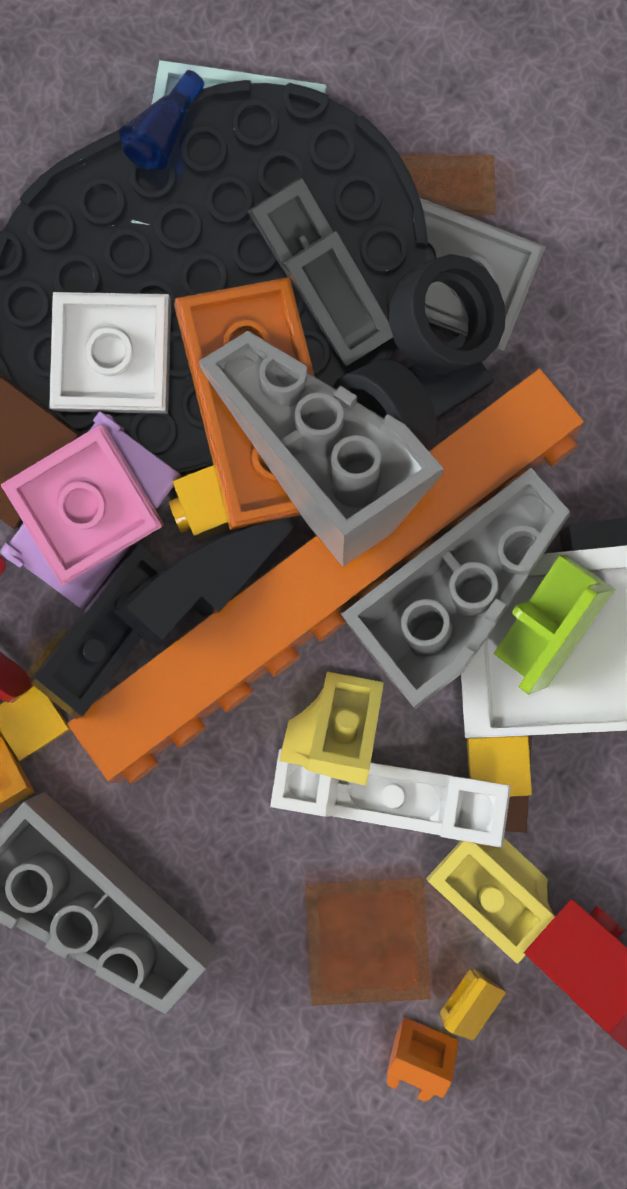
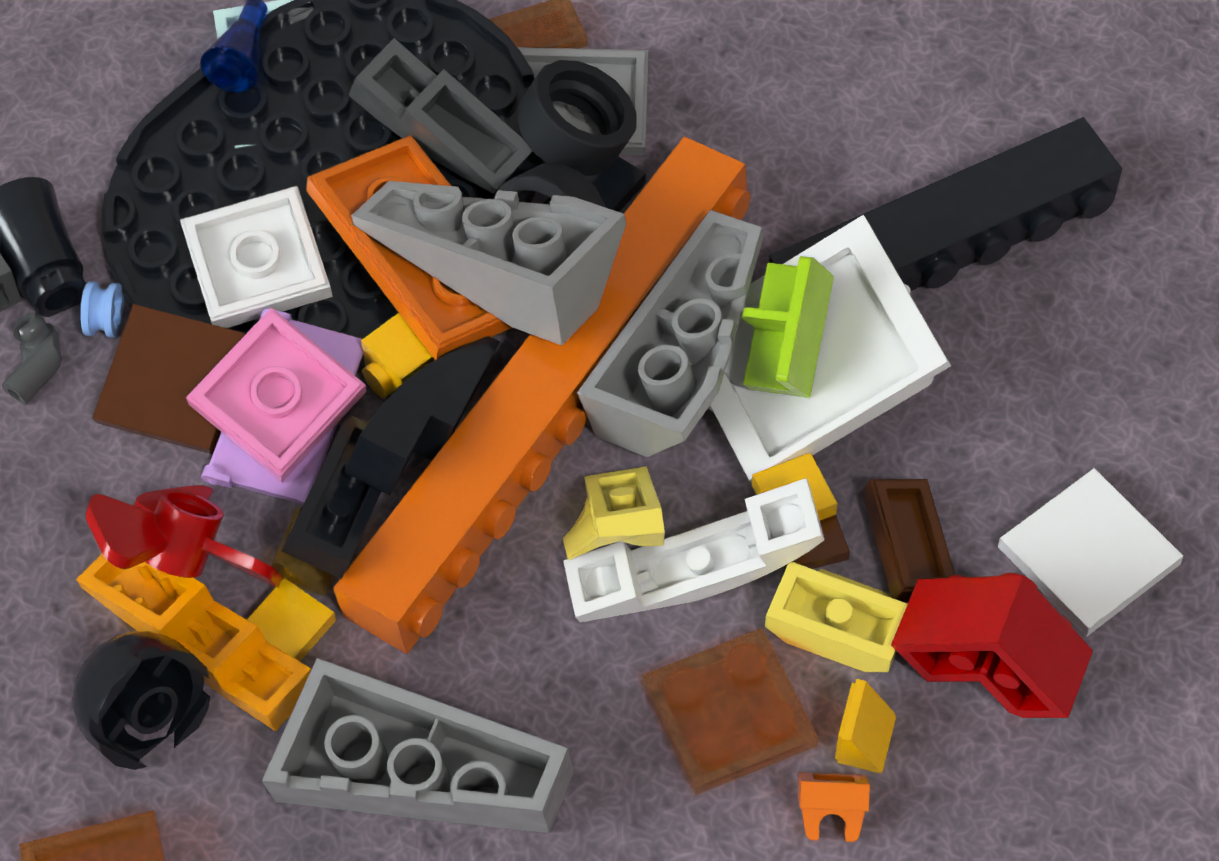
camera: 20 degrees left, 25 degrees down
(583, 840) = (907, 533): none -> reddish brown tile

